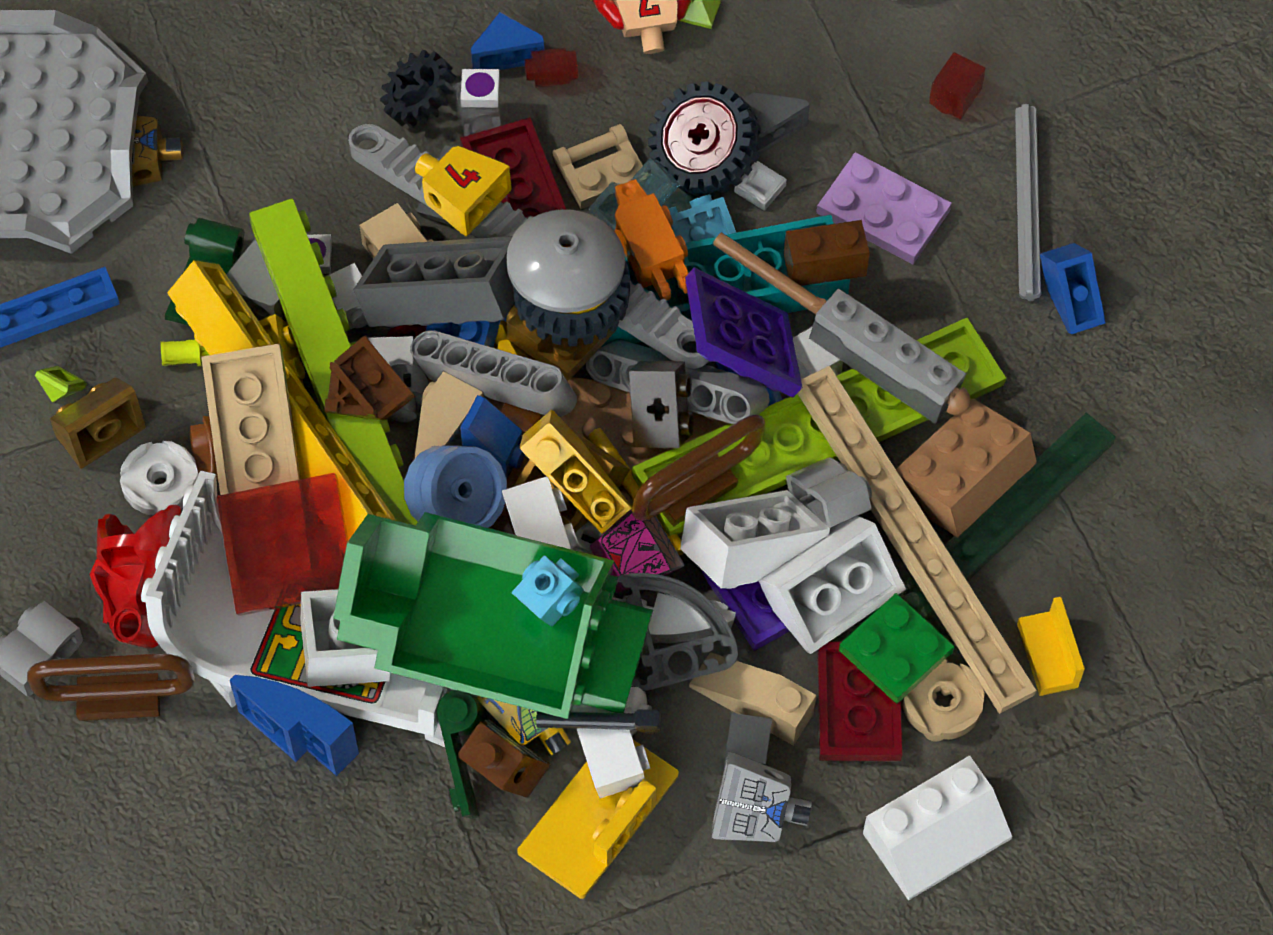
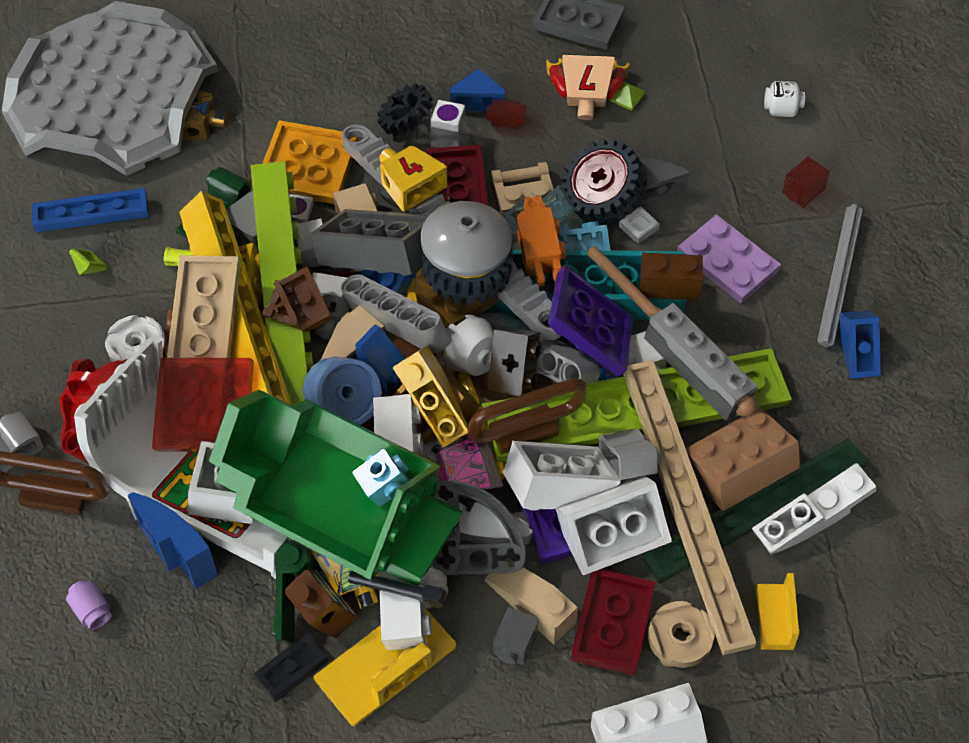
camera: 15 degrees right, 5 degrees down
(98, 421) = (104, 294): pearl gold slope -> none
(212, 825) = (89, 604): none -> lavender brick
(316, 175) = (313, 157): none -> light orange plate
(486, 845) = (290, 667): none -> black plate
(601, 396) = (469, 346): none -> white cone
(755, 802) = (507, 681): light grey torso -> none
(896, 648) = (652, 585): green plate -> none
(1067, 513) = (814, 512): none -> white slope

